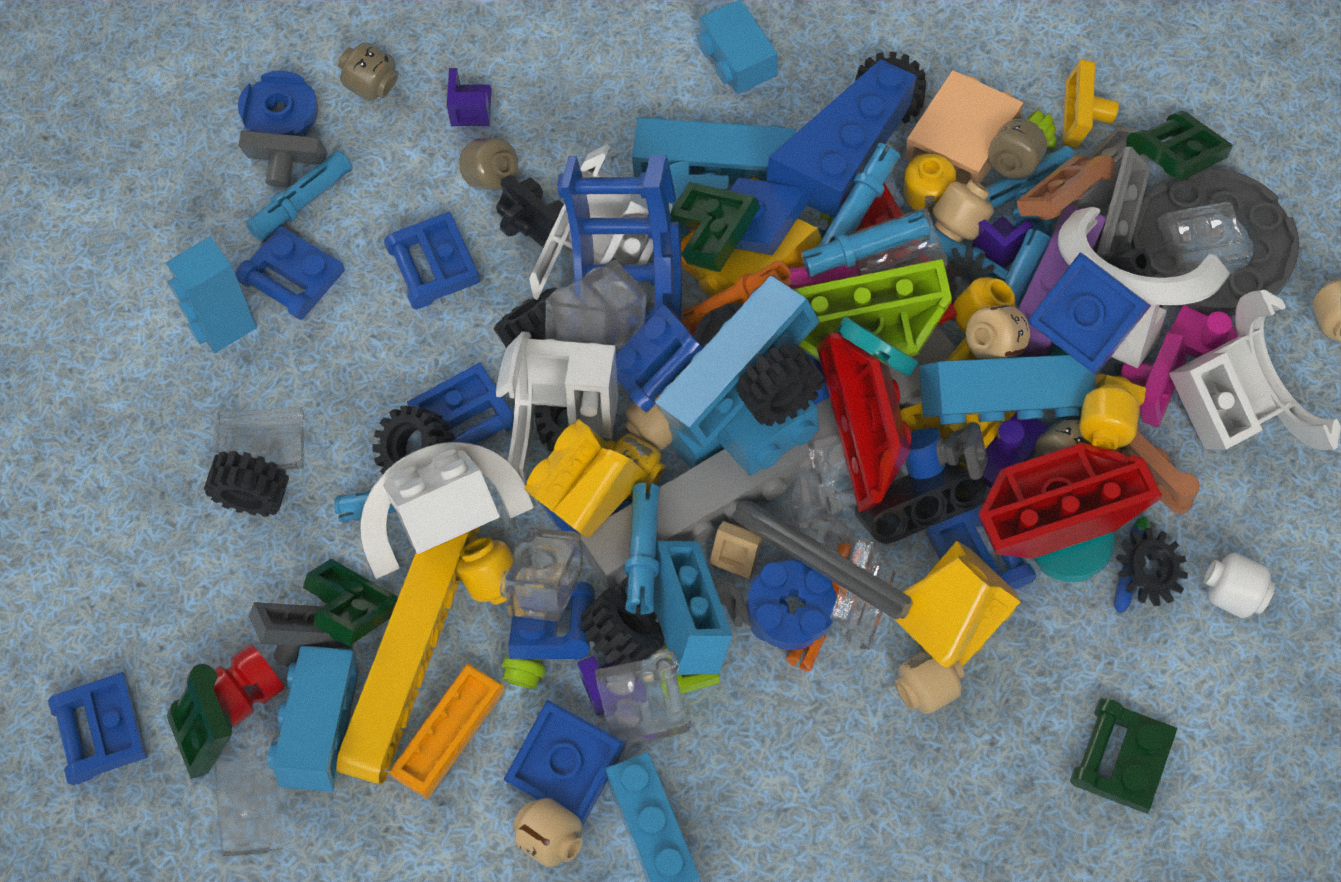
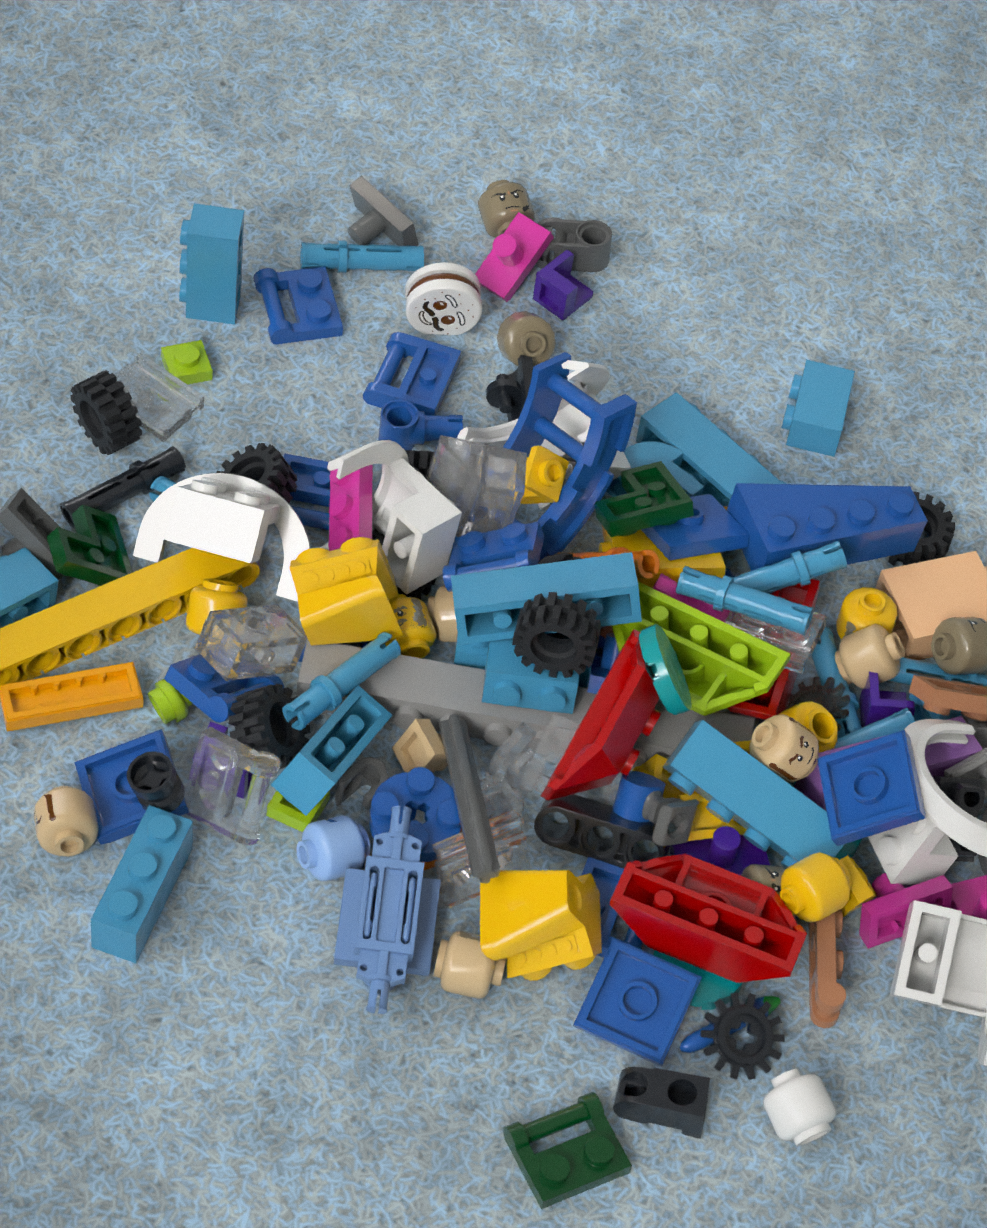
camera: 30 degrees right, 10 degrees down
(255, 389) = (187, 362): none -> lime plate
(276, 87) = (428, 172): blue plate -> none
(319, 509) = (127, 484): none -> black pin
(399, 181) = (443, 299): none -> white head
(412, 105) = (513, 256): none -> dark pink tile
(446, 50) = (585, 239): none -> dark grey piece
(478, 298) = (409, 427): none -> blue pin
(515, 417) = (350, 506): none -> dark pink plate
(586, 742) = (155, 781): none -> black wheel
(636, 261) = (543, 476): none -> yellow bracket
(754, 678) = (332, 847): none -> light blue head
(847, 698) = (388, 914): none -> medium blue piece
(1065, 605) = (637, 1002): none -> blue plate
(1151, 660) = (663, 1098): none -> black leg

